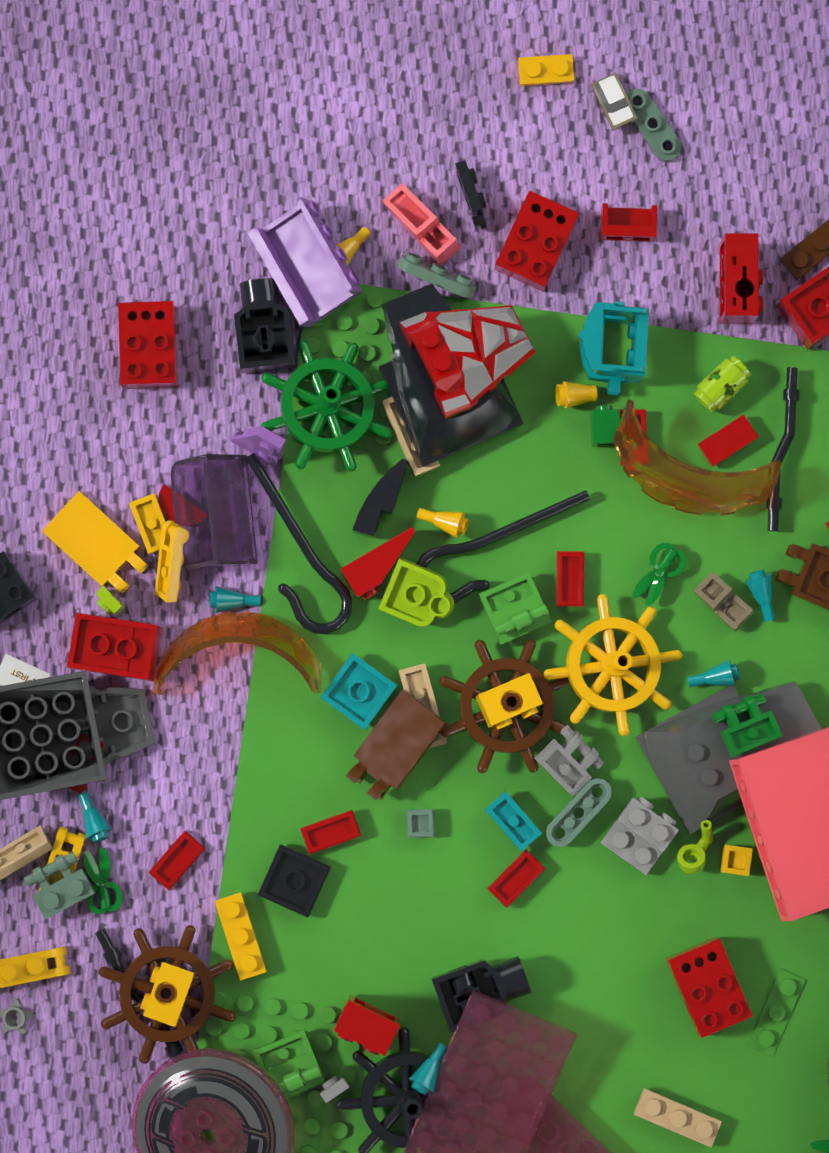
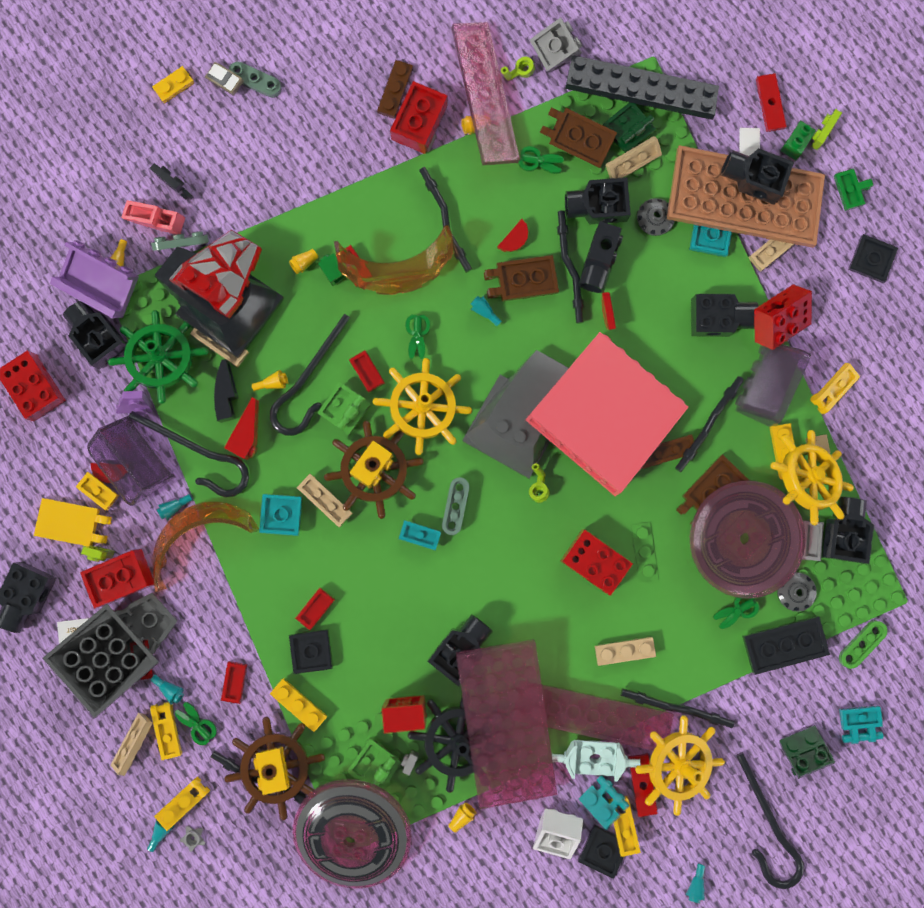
camera: 30 degrees left, 0 degrees up
(65, 892) = (175, 745): sand green plate -> none
(170, 561) = (120, 506): yellow plate -> none
(396, 744) = (321, 533): reddish brown tile -> none
(416, 594) = (280, 436): lime plate -> none
(420, 823) = (365, 570): sand green tile -> none
(425, 1077) = (459, 722): teal cone -> none
(516, 878) = (442, 568): red tile -> none
(536, 241) = (226, 185): red piece -> none
(563, 767) = (428, 484): light grey plate -> none
(593, 341) = (300, 197): teal animal -> none
(628, 224) = (276, 144): red panel -> none
(640, 834) = (500, 496): light grey plate -> none
(720, 675) = (490, 373): teal cone -> none
(723, 601) = (465, 329): dark tan slope -> none
(727, 440) = (410, 234): red tile -> none
(732, 376) = (382, 209): lime piece -> none
(736, 860) = (566, 476): yellow plate -> none
(740, 279) = (359, 134): red piece -> none
(748, 734) = (527, 396): green plate -> none

